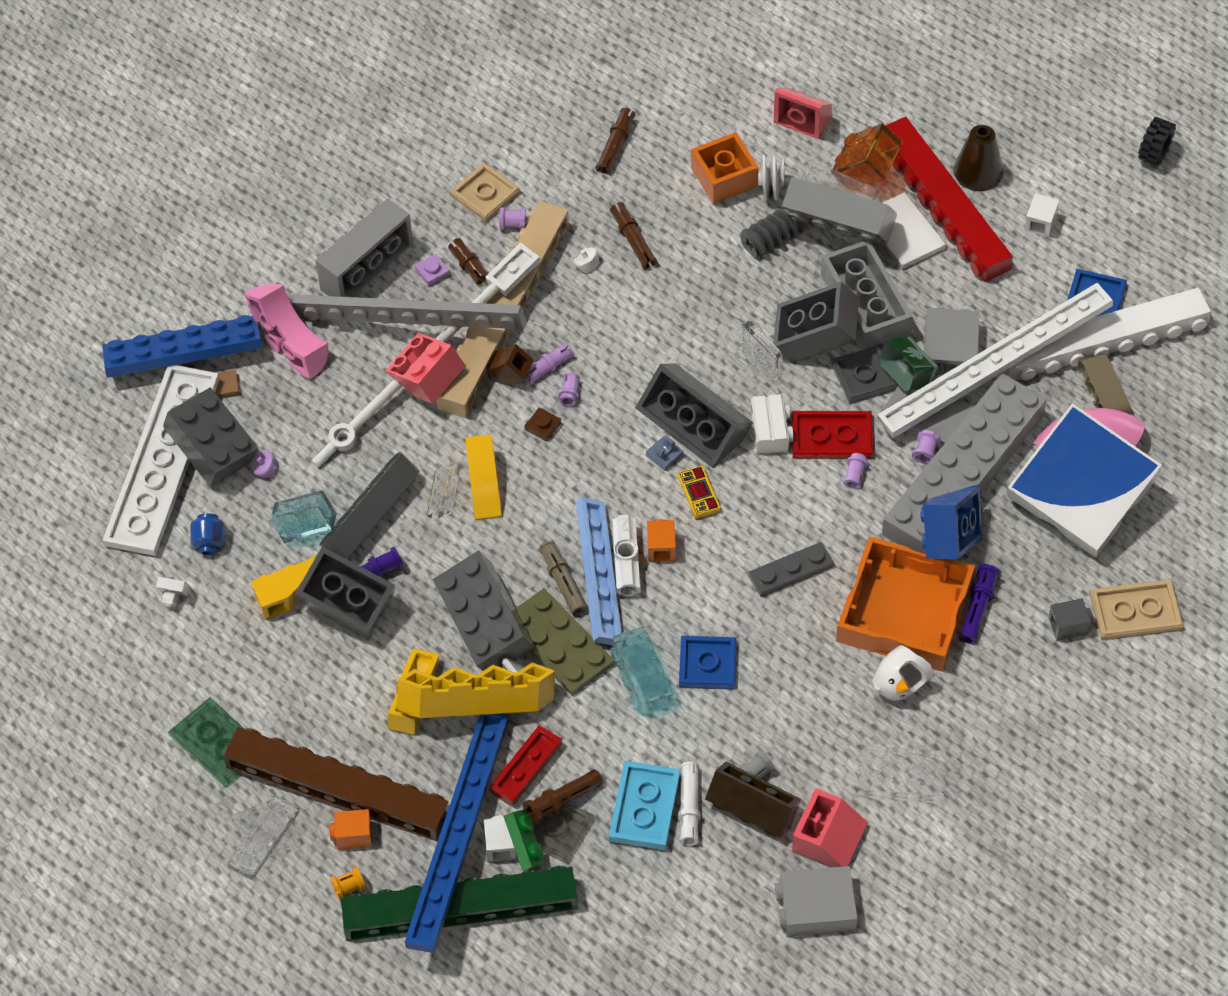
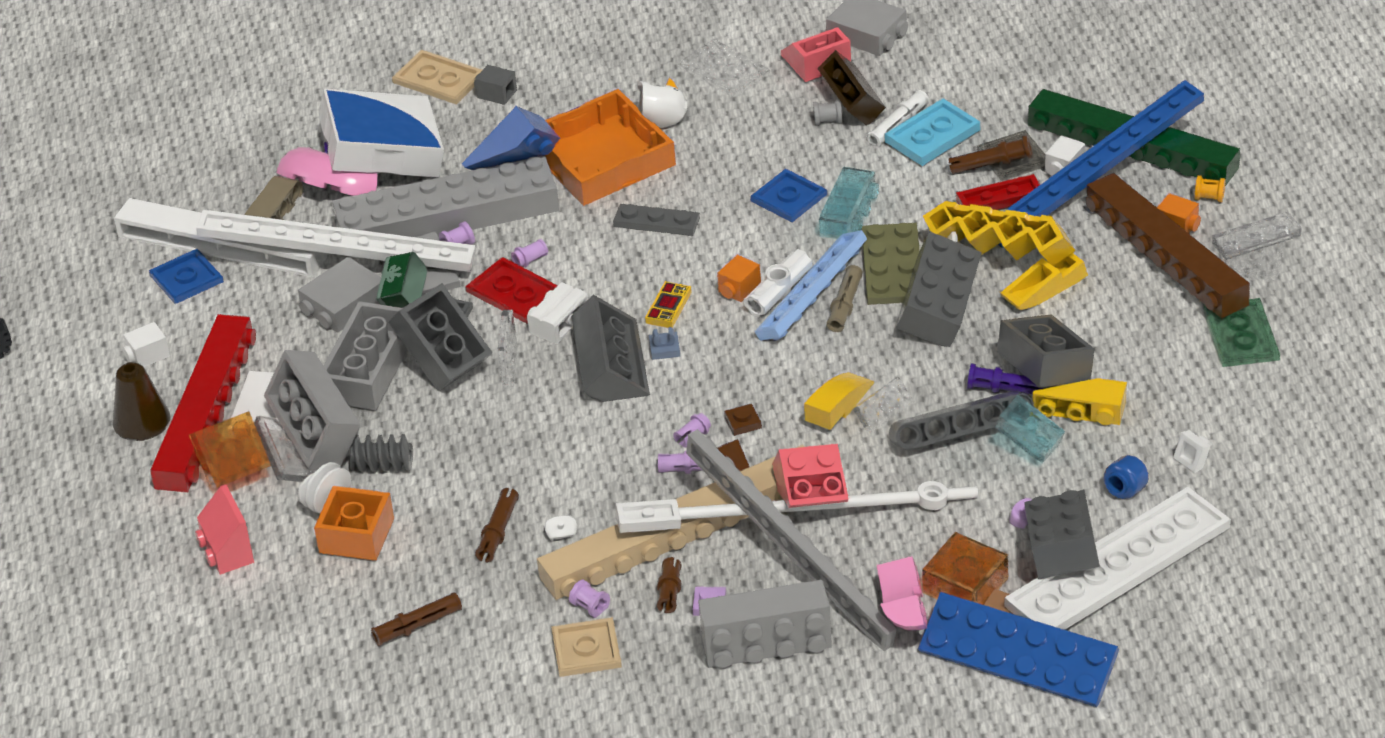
camera: 140 degrees left, 15 degrees down
(263, 381) = (965, 570): none -> clear orange brick
(524, 840) = (1047, 139): green plate -> none

